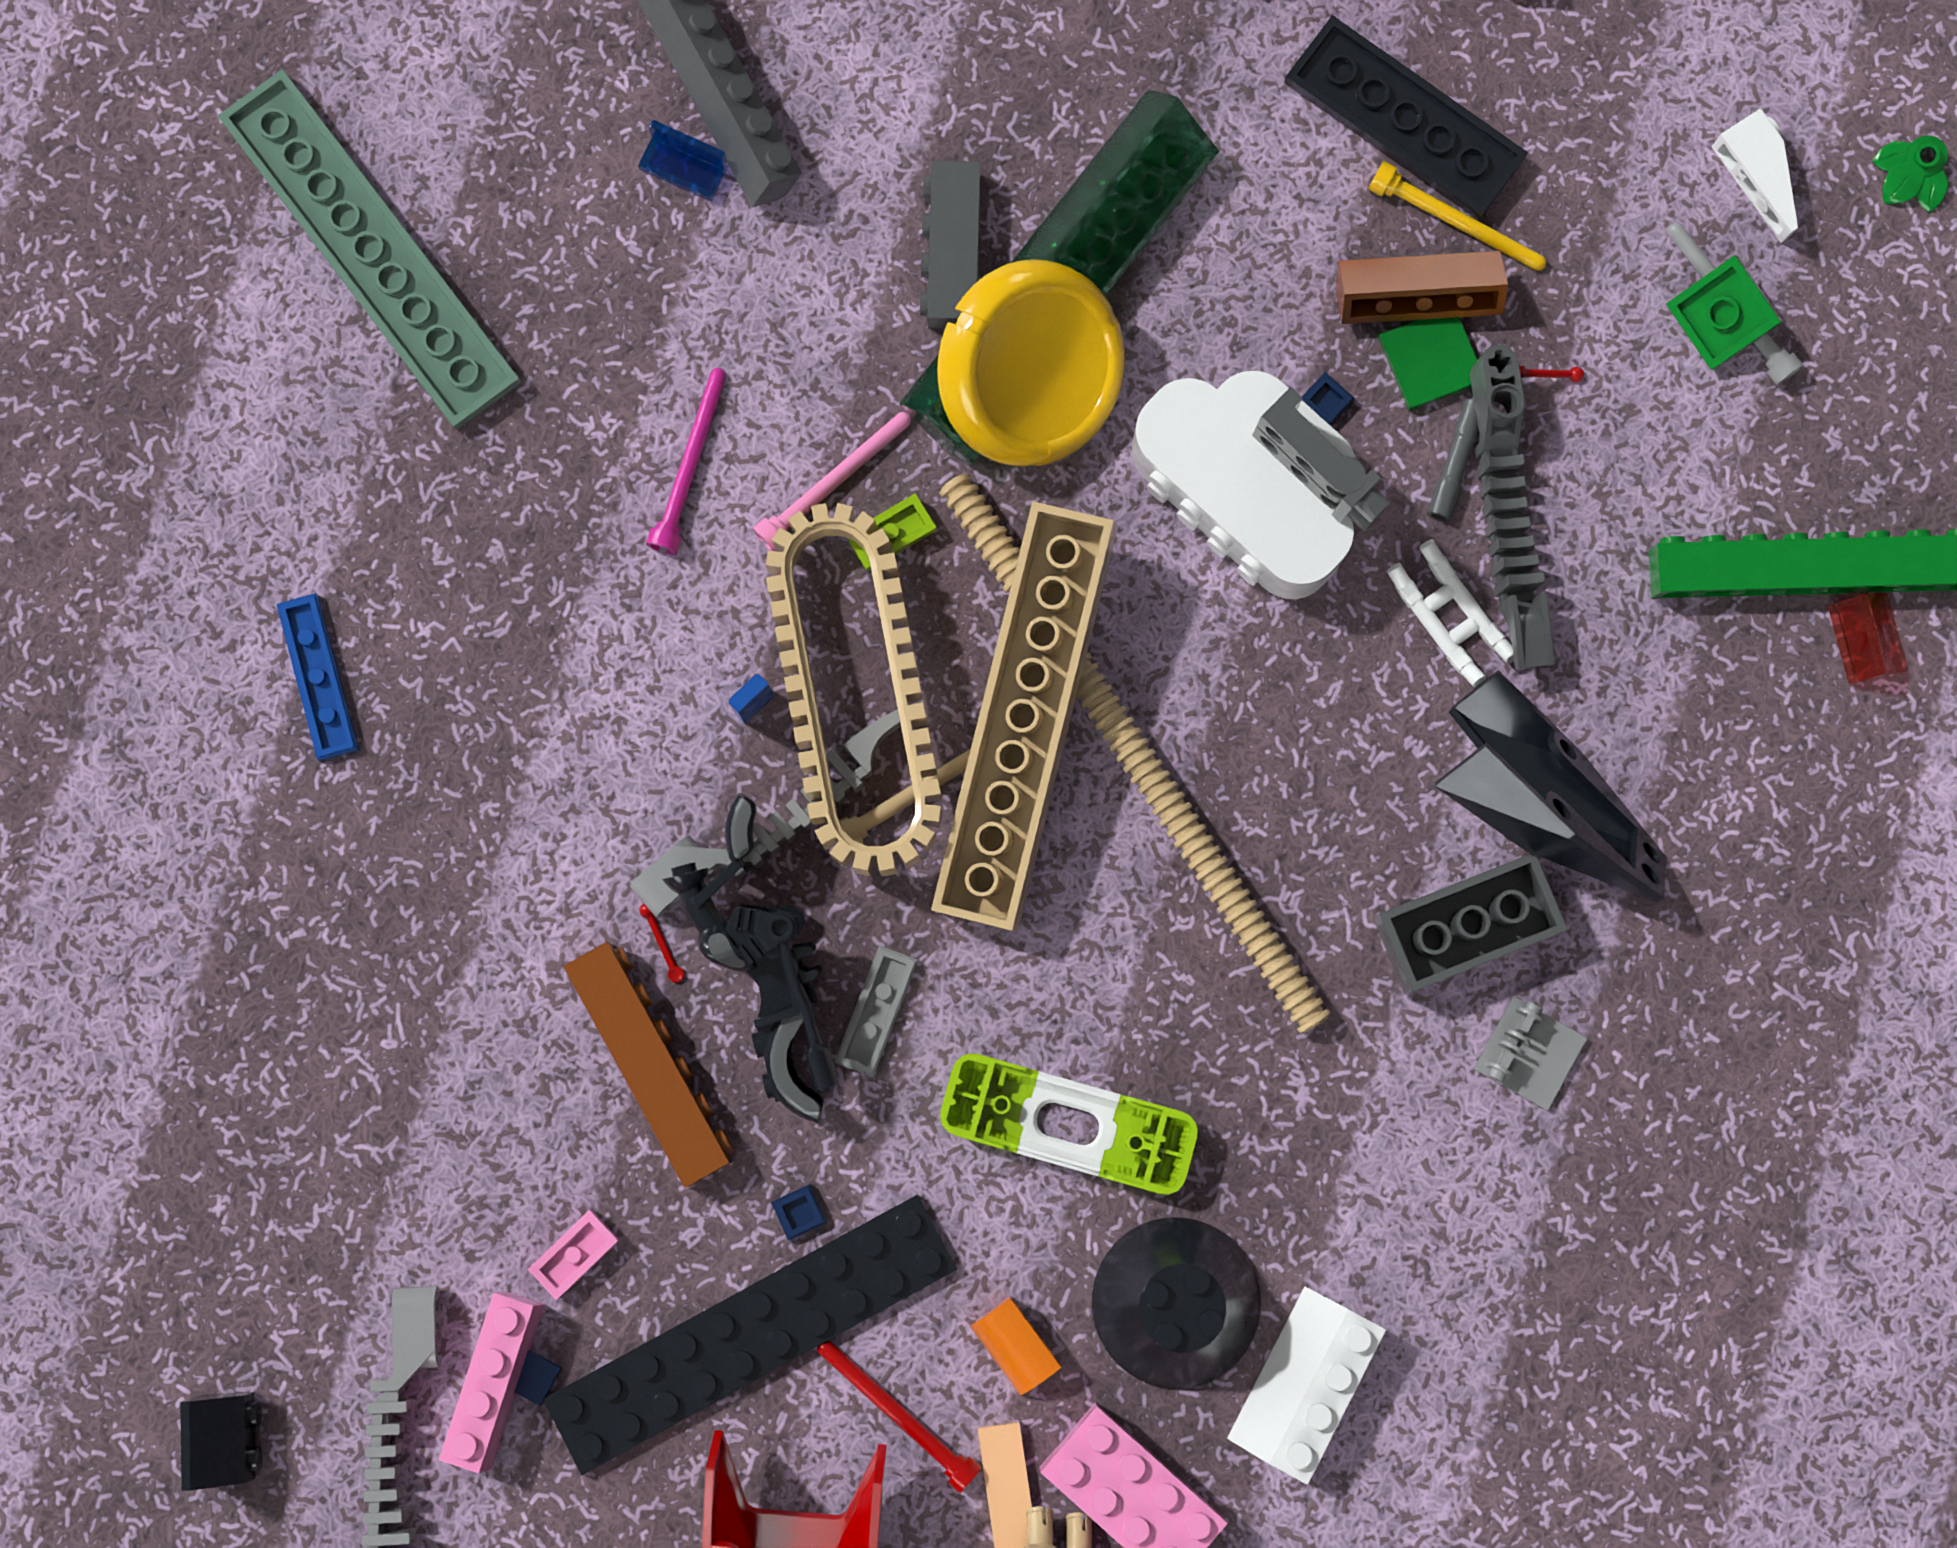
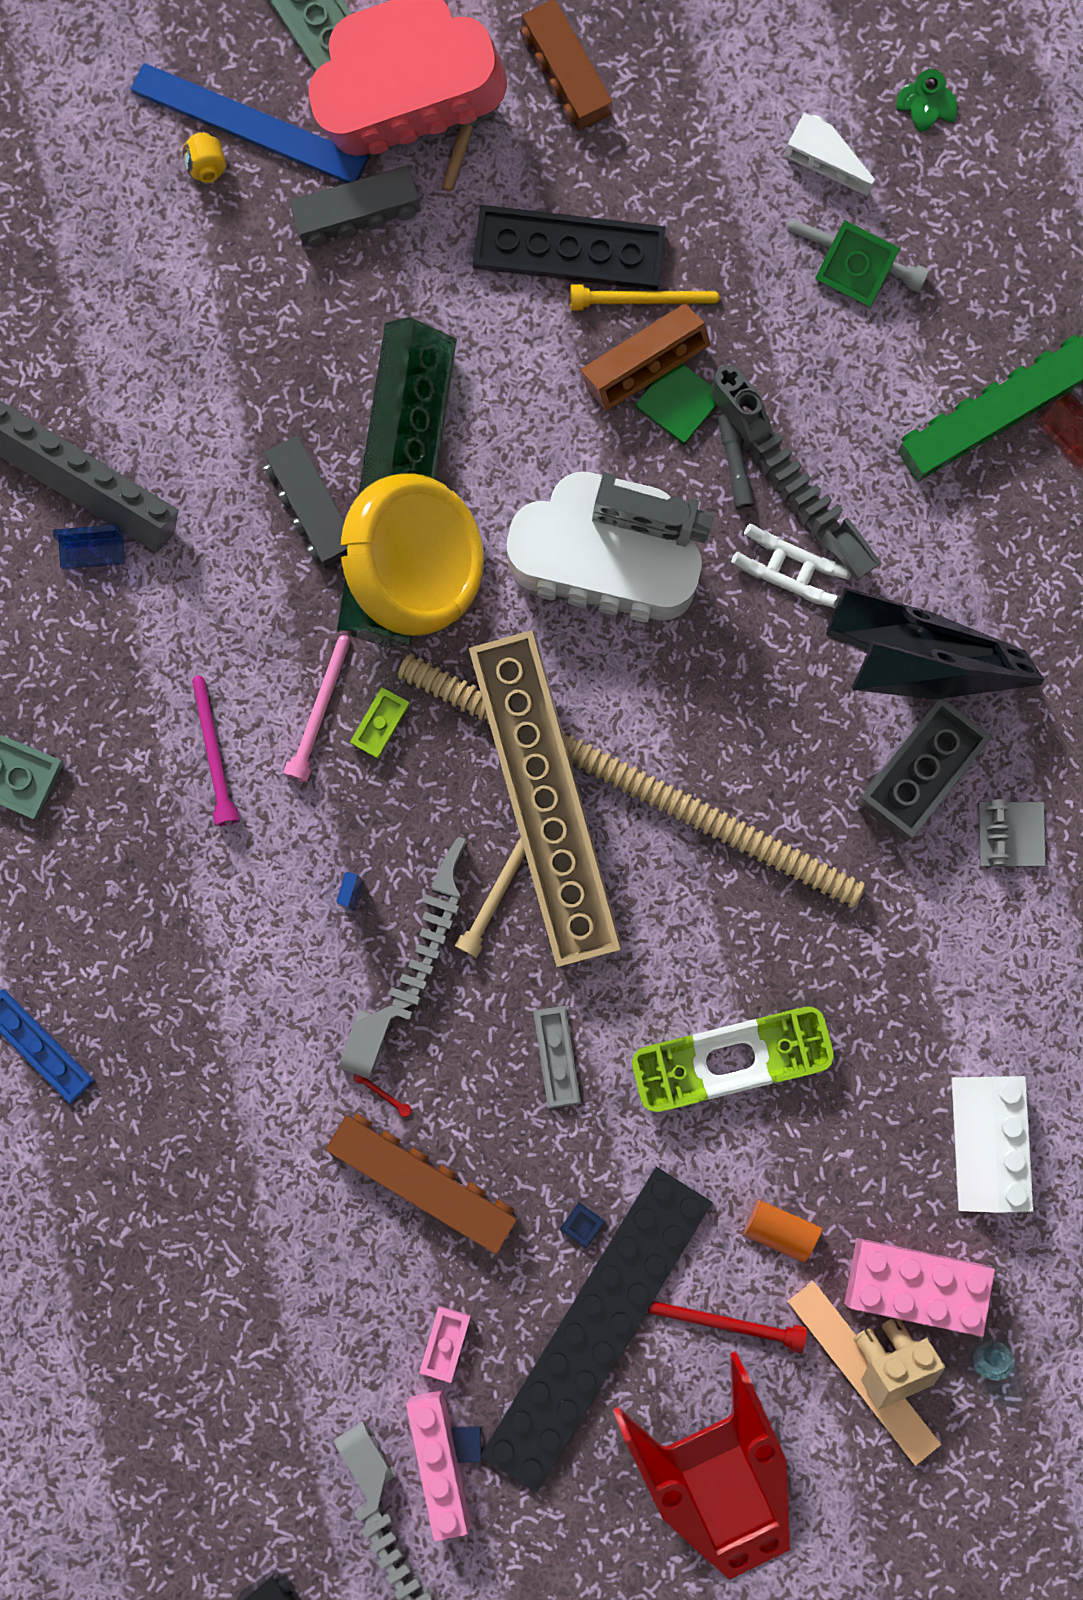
camera: 30 degrees left, 0 degrees up
(761, 945) = (455, 1058): black piece -> none
(897, 641) = (379, 863): tan piece -> none
(1176, 1303) = (872, 1138): black cone -> none
(1328, 398) = (625, 466): dark blue tile -> none
(1575, 374) = (781, 359): red hinge -> none

